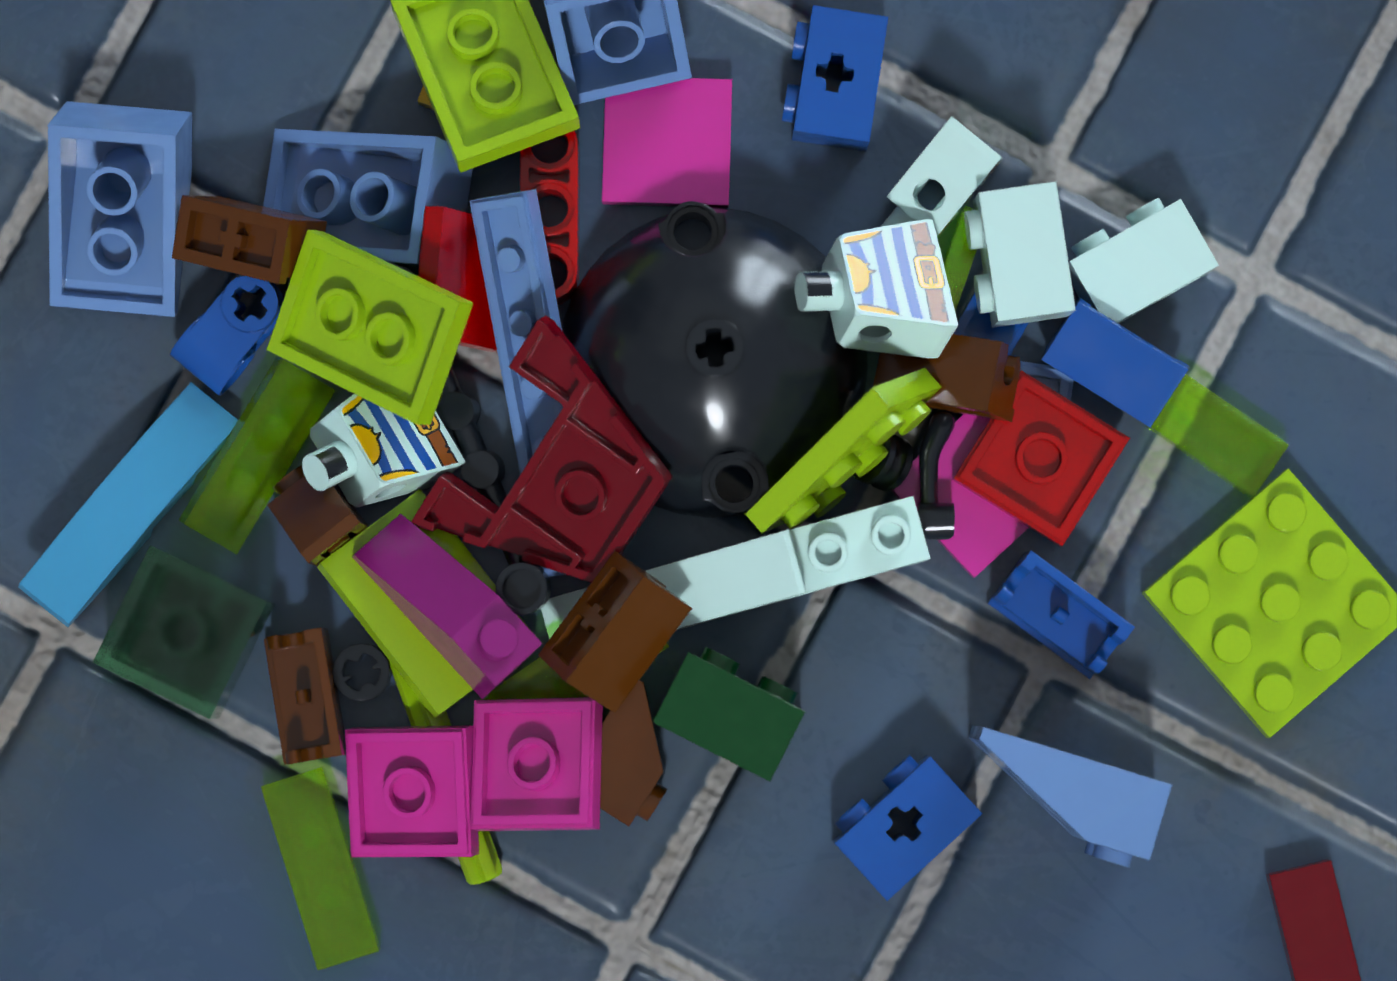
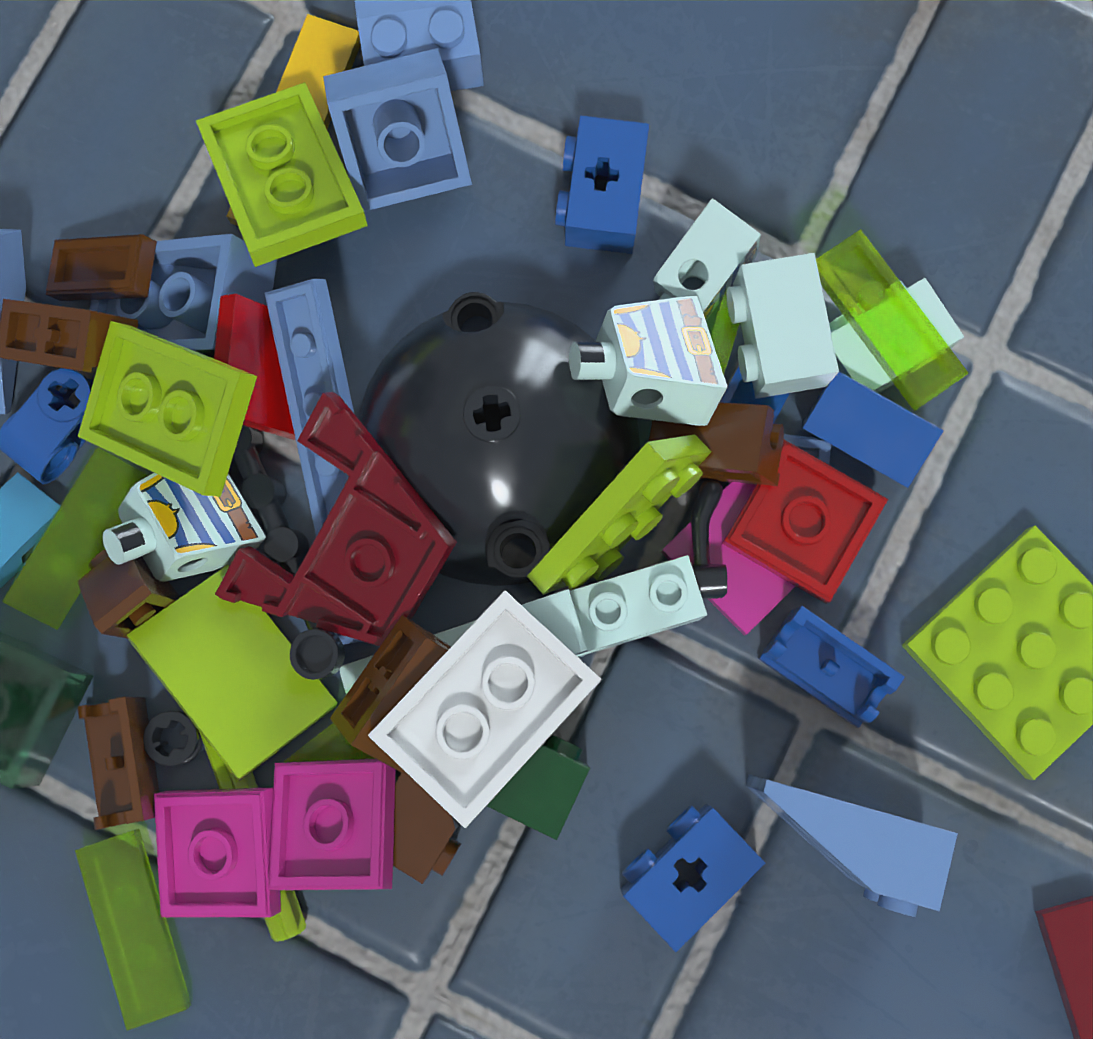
camera: 10 degrees right, 5 degrees down
(281, 158) = (101, 268): none -> reddish brown tile
(448, 605) = (248, 673): magenta slope -> none
(560, 181) = (352, 282): red beam -> none
(669, 144) = (452, 247): dark pink tile -> none
(702, 648) = (484, 708): none -> white plate
(893, 468) = (665, 534): black bush -> none
(1136, 246) = (888, 320): none -> clear neon green tile
(1219, 436) = (968, 499): clear neon green tile -> none

